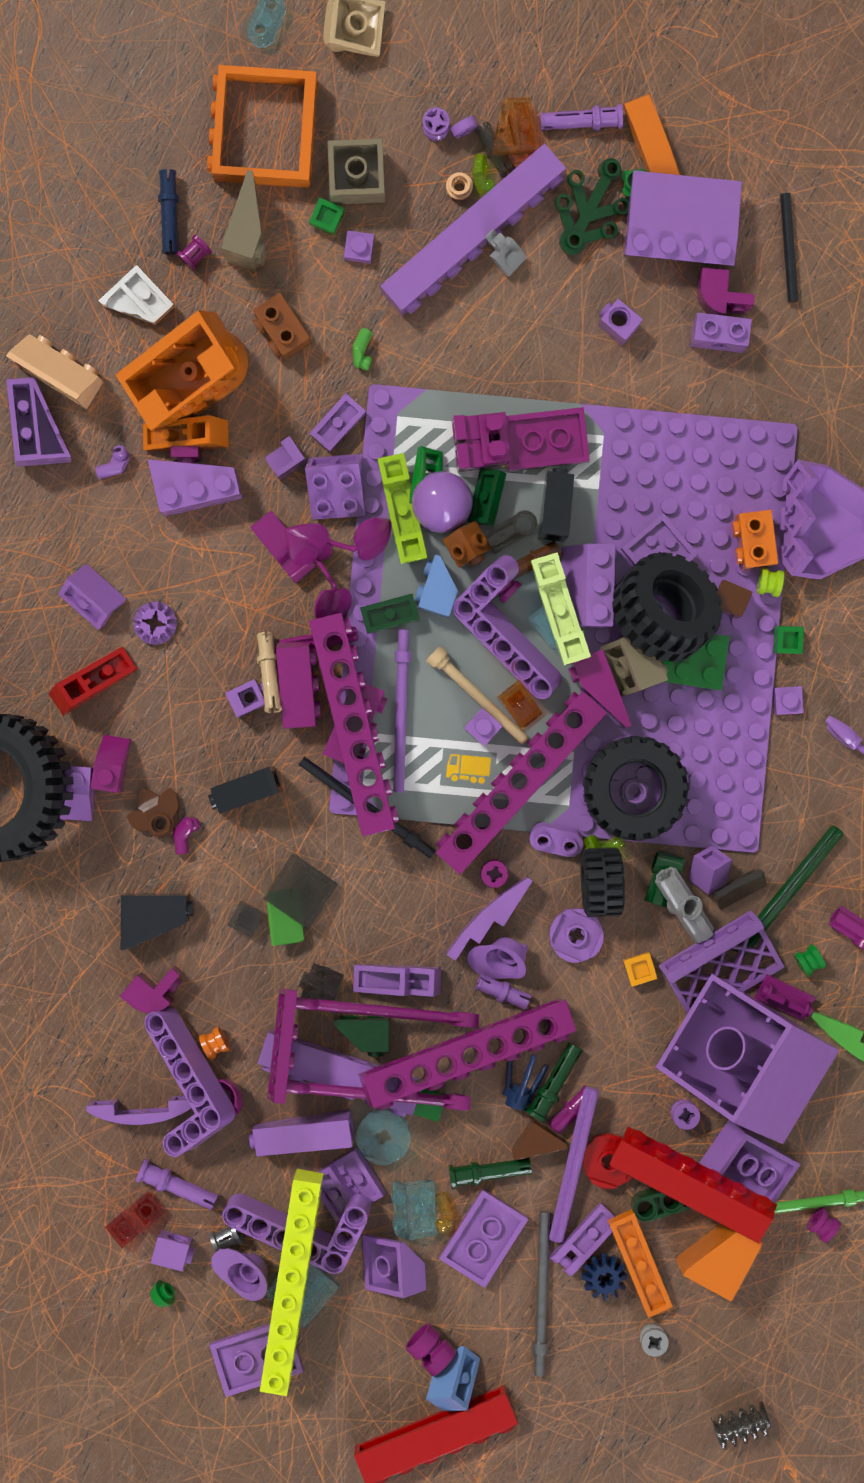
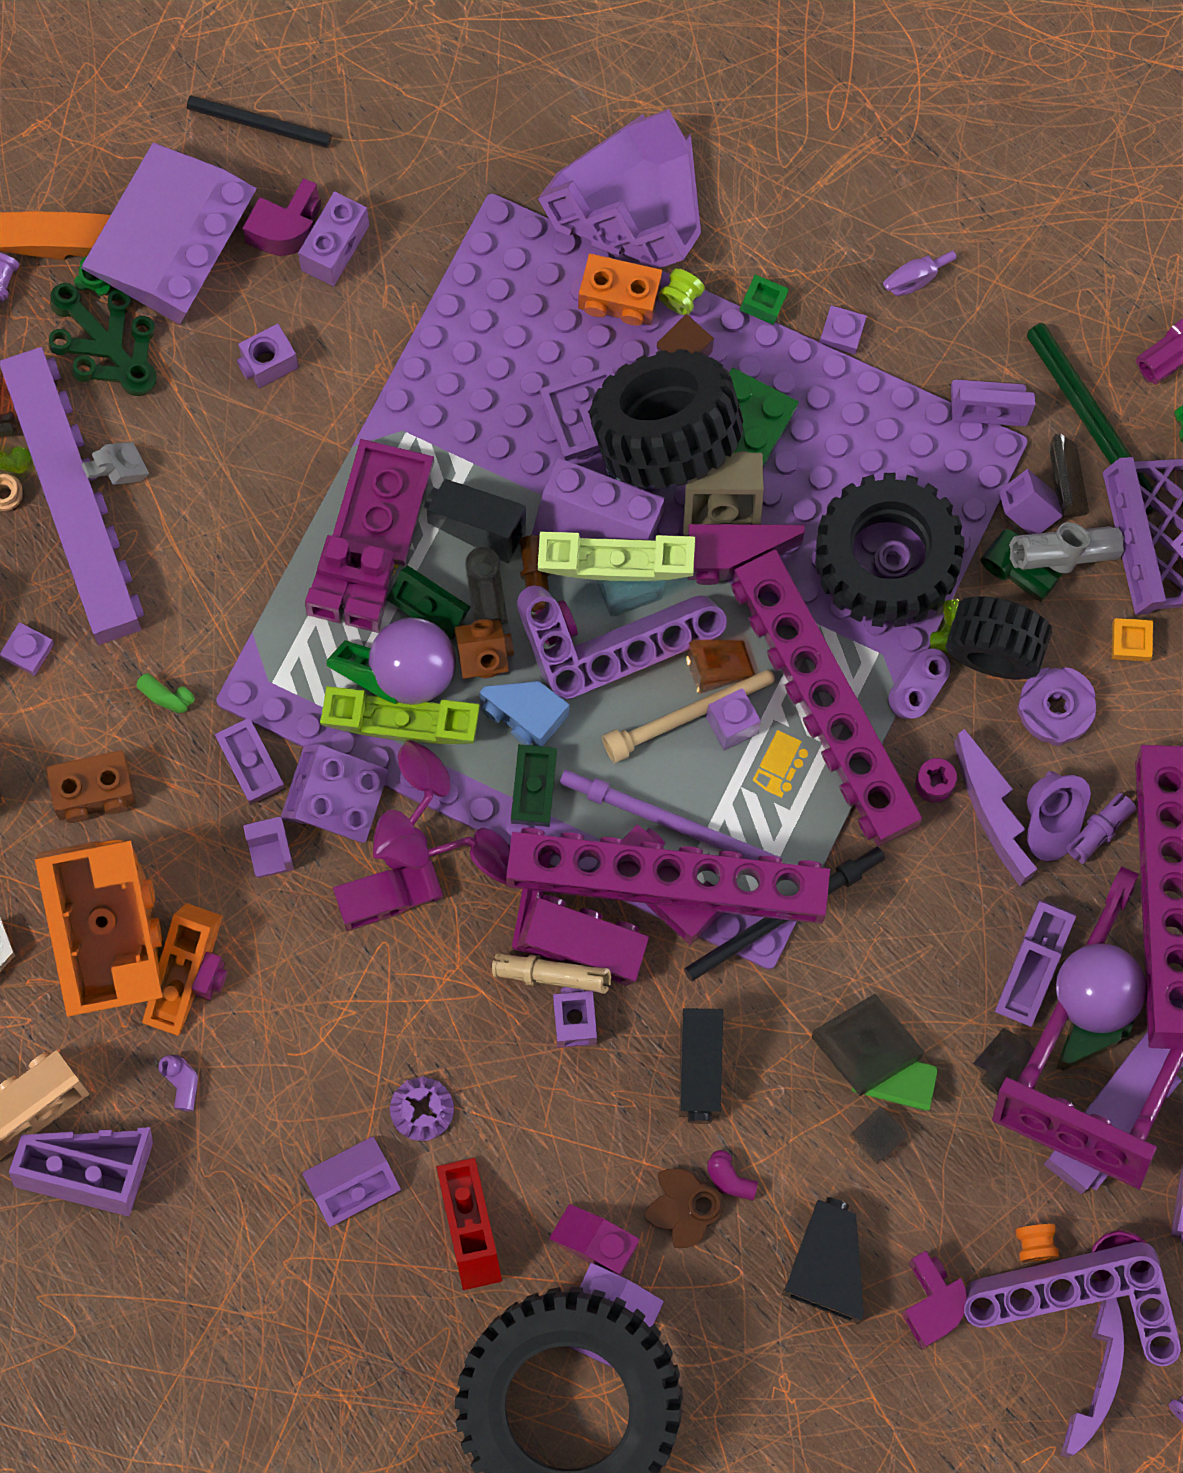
camera: 70 degrees left, 15 degrees down
(192, 486) = (255, 983): medium lavender wedge -> none
(389, 1029) = (1101, 988): none -> medium lavender piece
(772, 818) = (991, 403): none -> medium lavender panel

